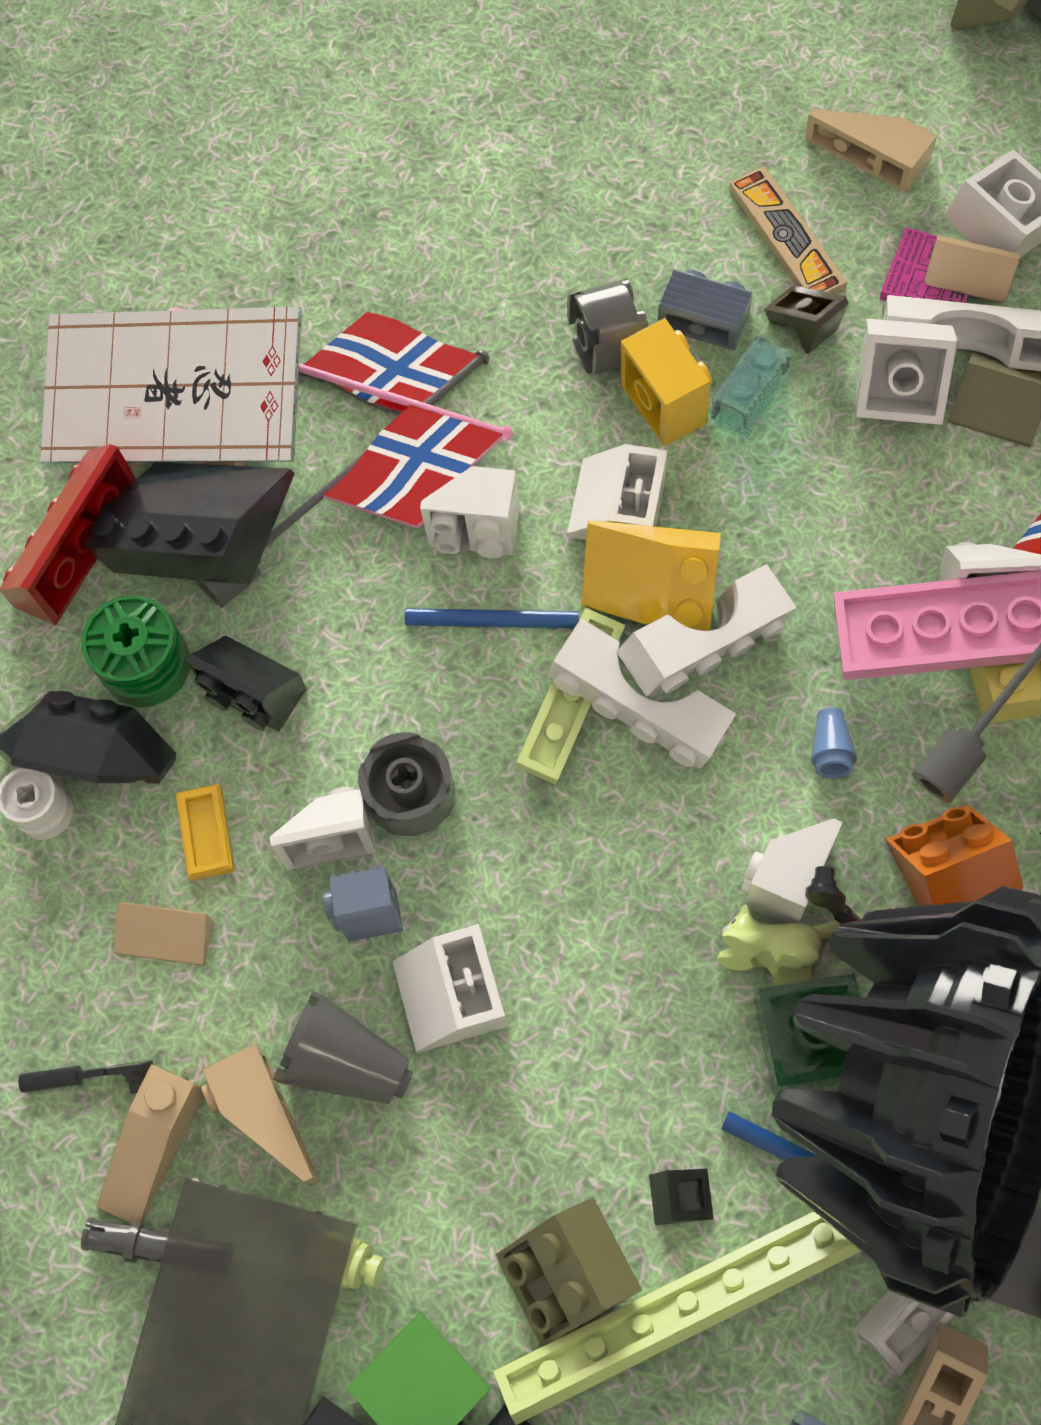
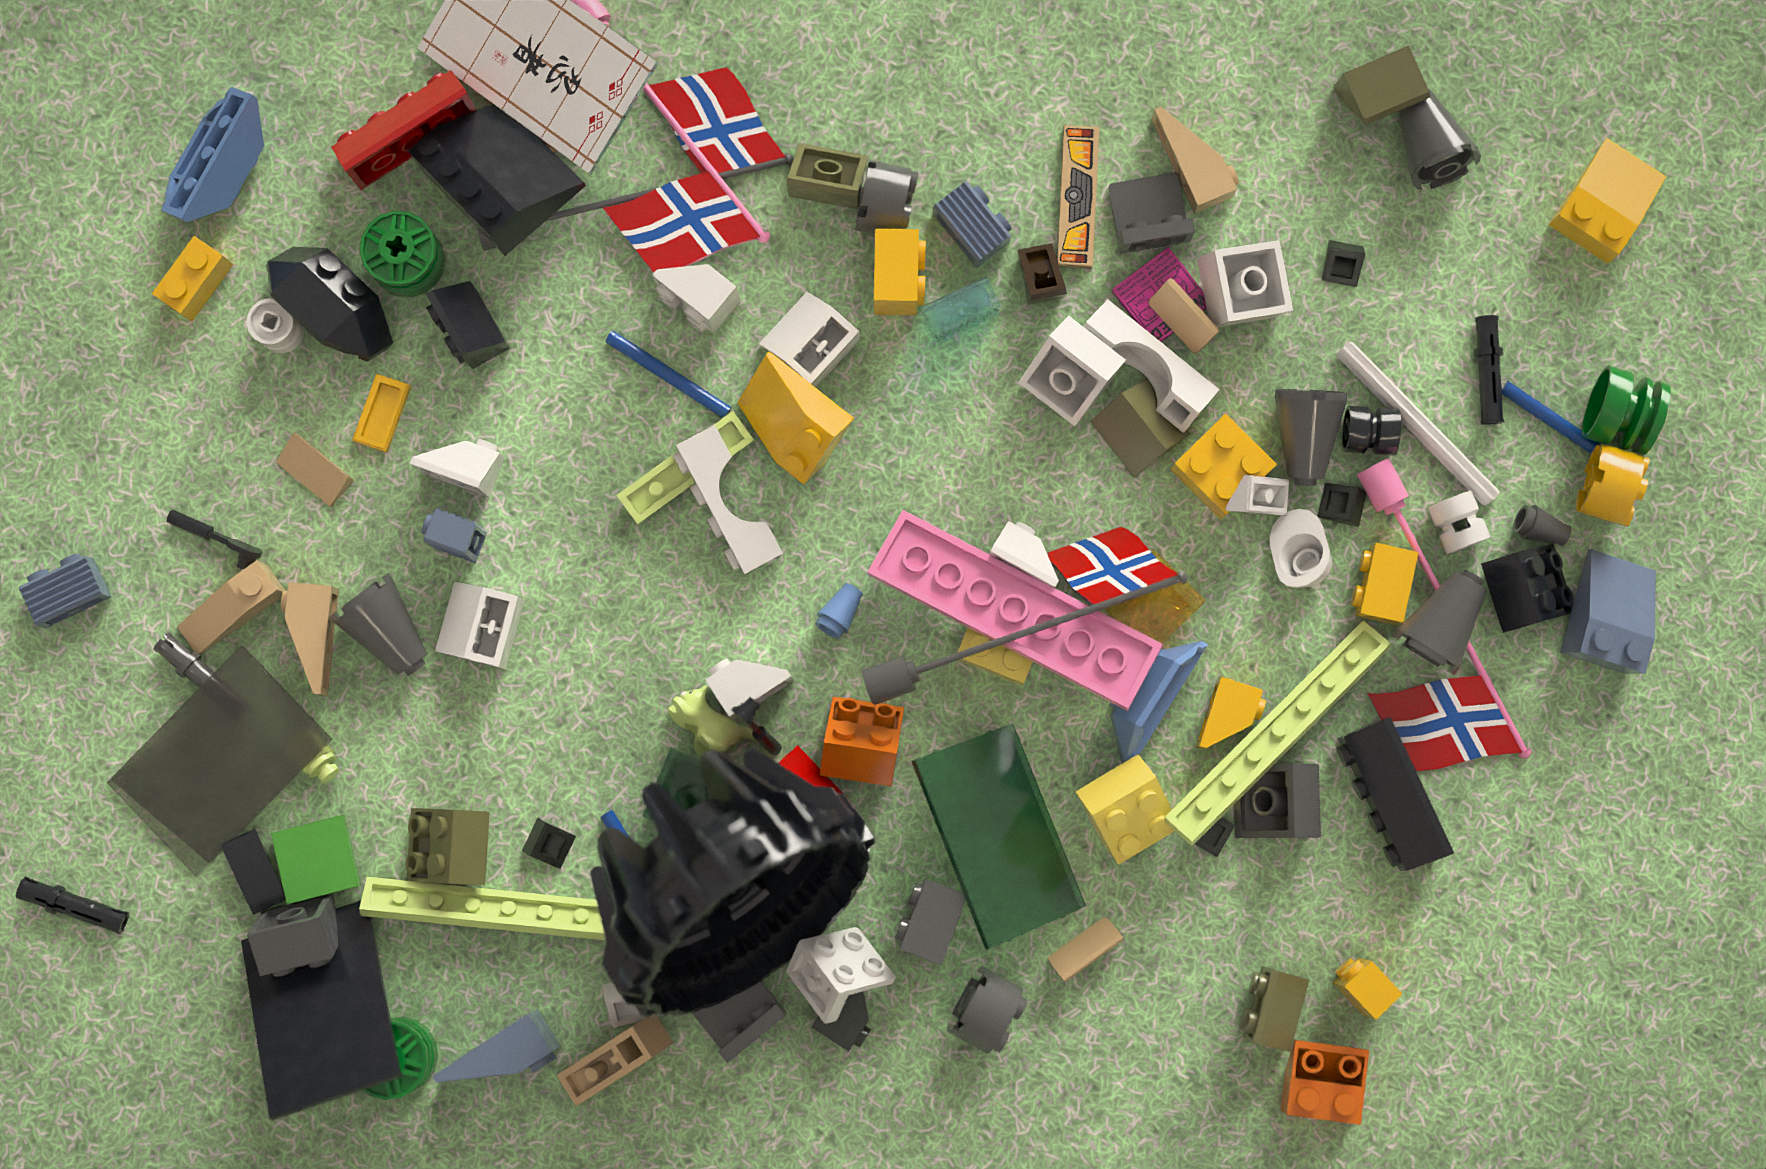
camera: 25 degrees right, 15 degrees up
(412, 809) = (522, 449): dark grey brick -> none
(534, 349) = (827, 176): none -> olive slope
(668, 651) = (758, 485): white arch -> none
(869, 210) = (1149, 213): none -> dark grey bracket

